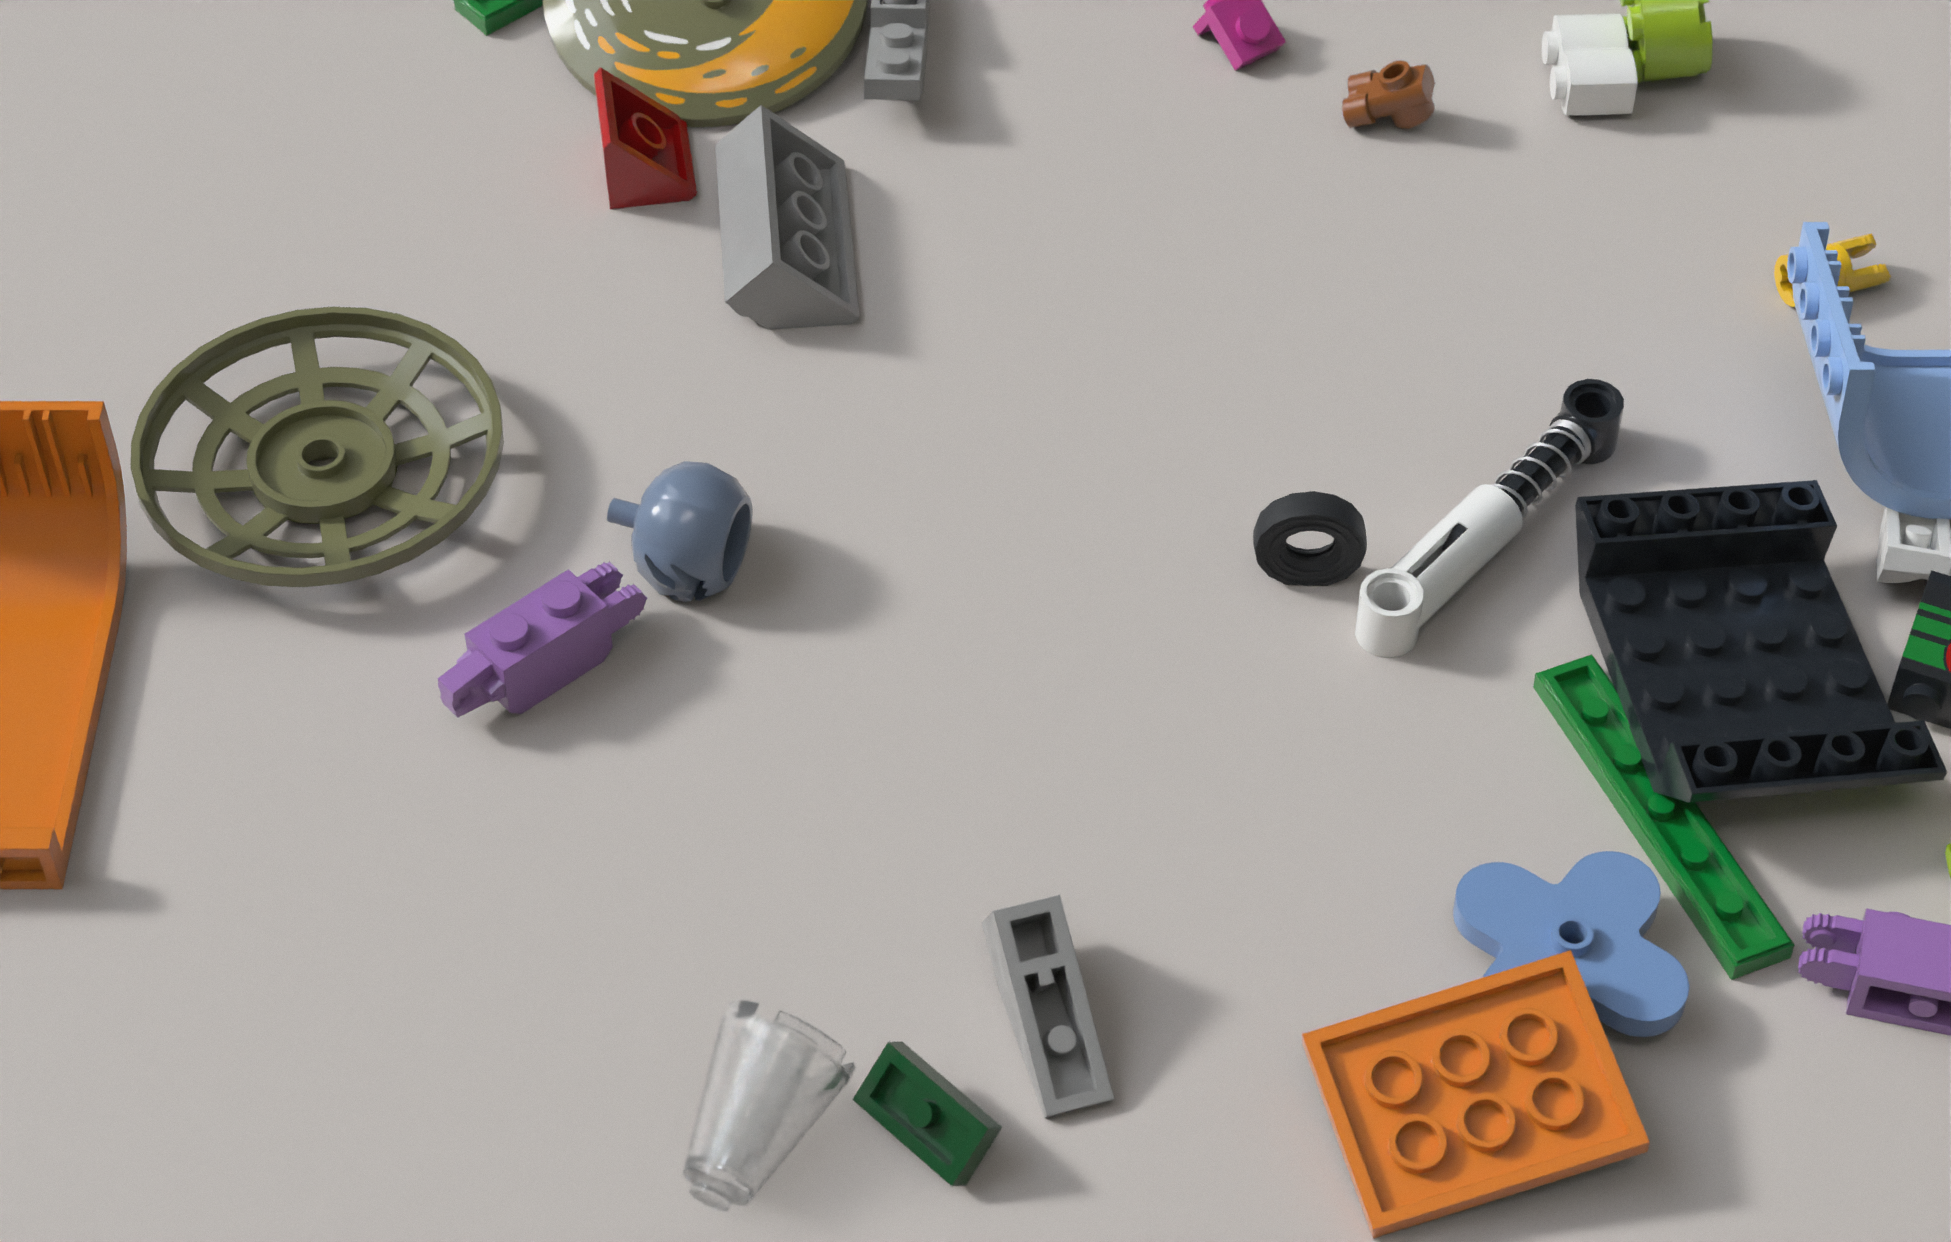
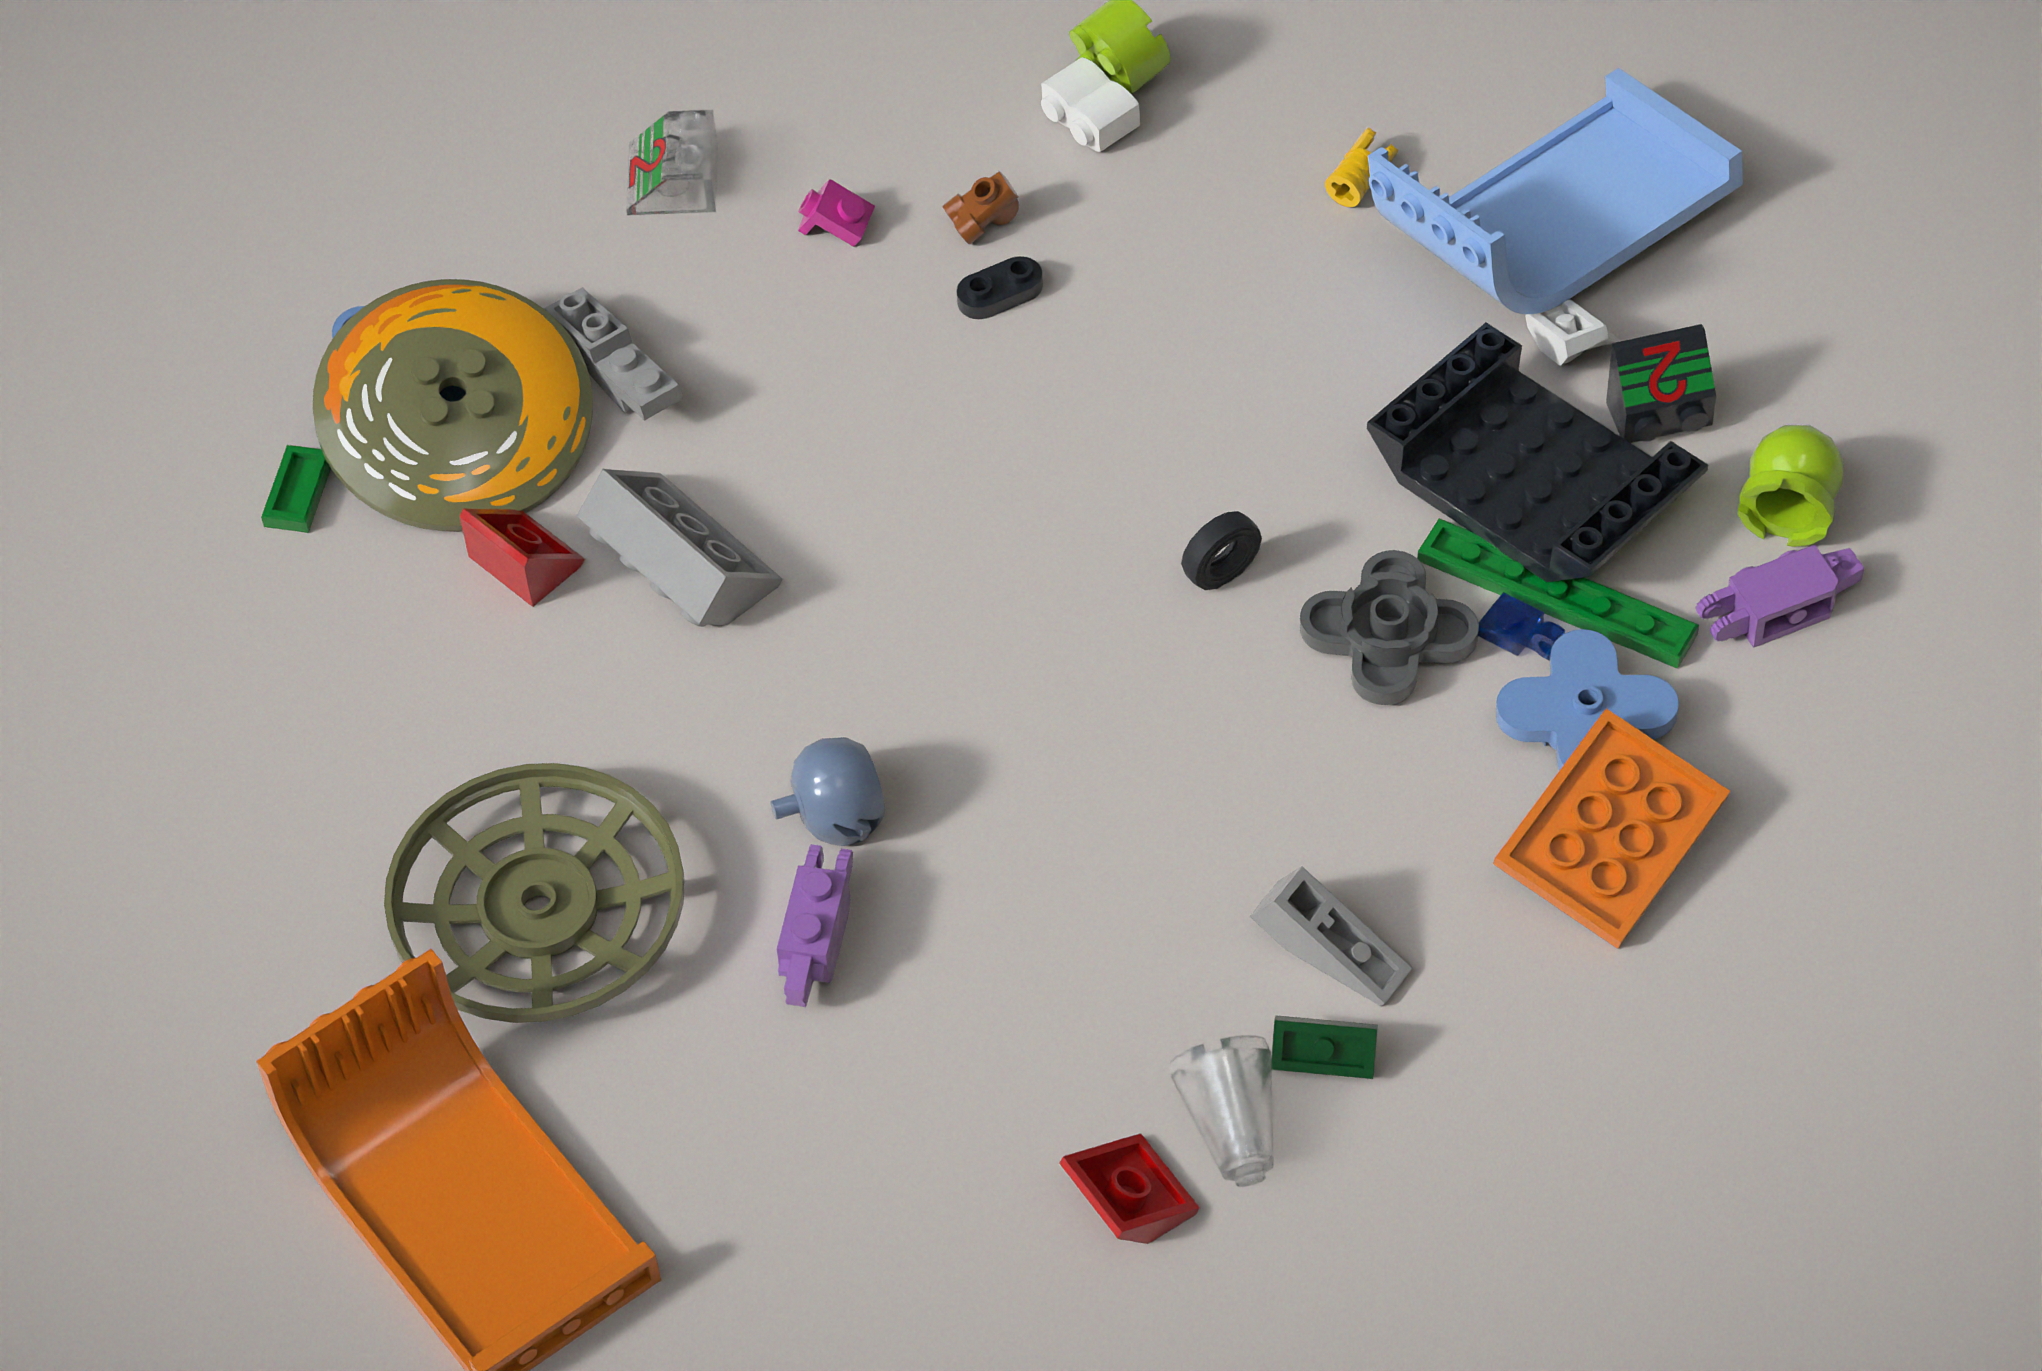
camera: 35 degrees left, 5 degrees up
(576, 1119) = (1130, 1188): none -> red slope
(1339, 179) = (1003, 287): none -> black plate
(1409, 593) = (1306, 469): white piece -> none
(1428, 729) = (1389, 627): none -> dark grey plant
(1575, 814) = (1518, 625): none -> clear blue plate

